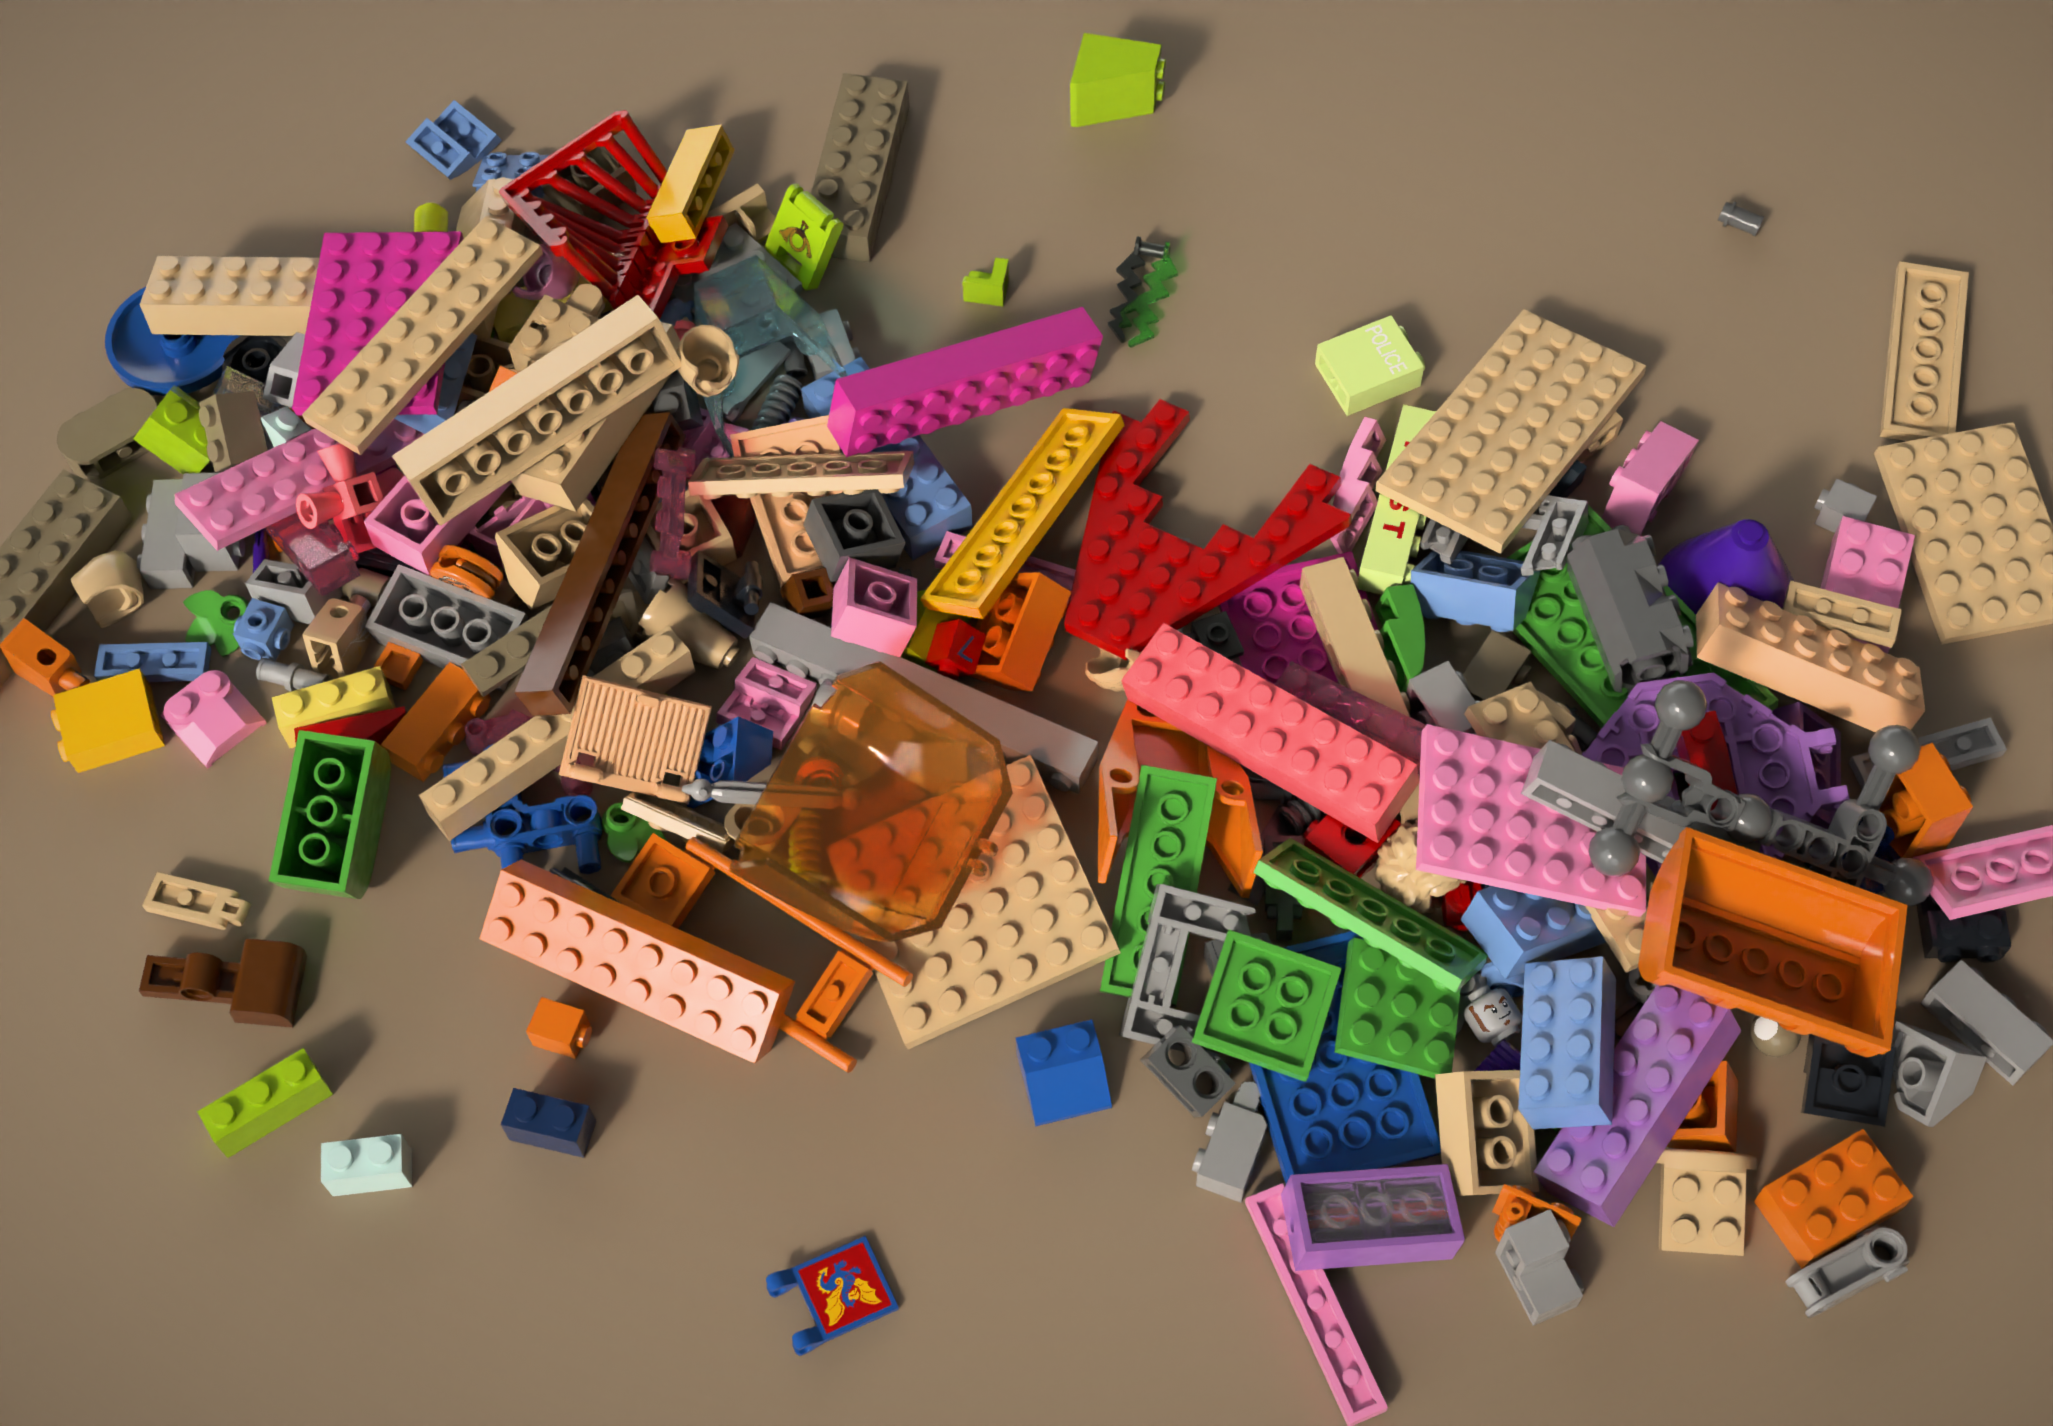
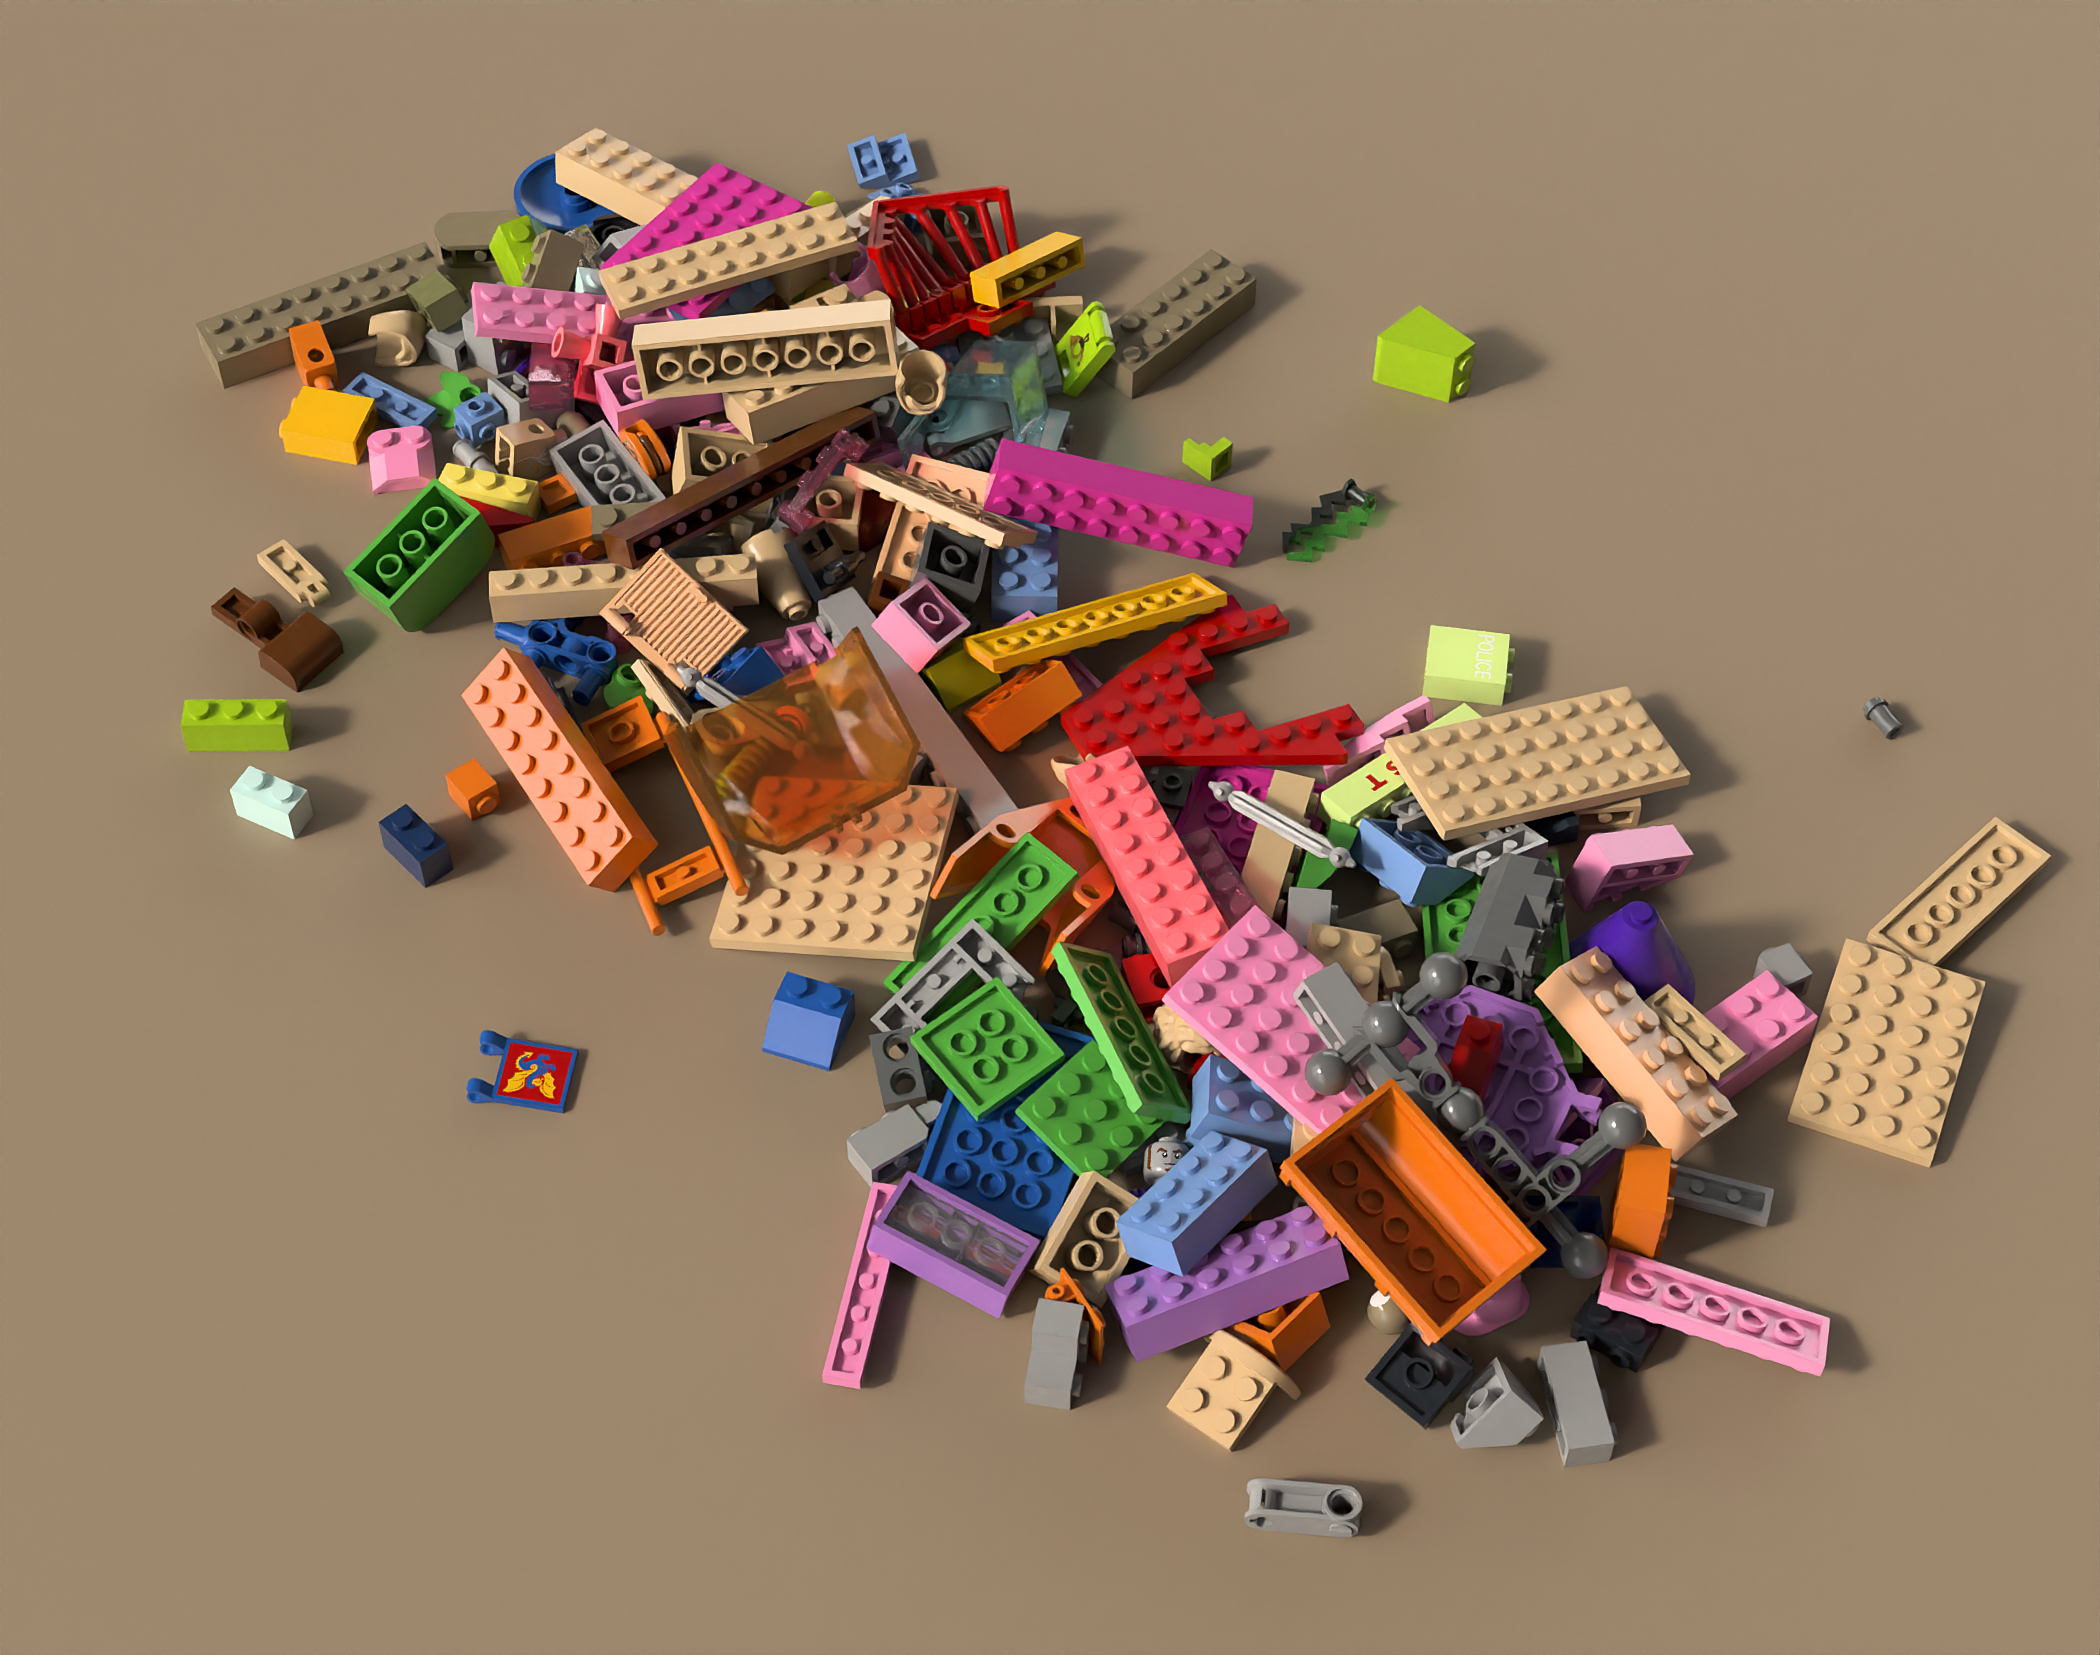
camera: 30 degrees right, 10 degrees down
(130, 526) = (438, 300): none -> olive brick
(955, 649) = (965, 692): red brick -> none
(1353, 620) = (1282, 824): none -> wheel
(1833, 1198) = (1335, 1445): orange brick -> none

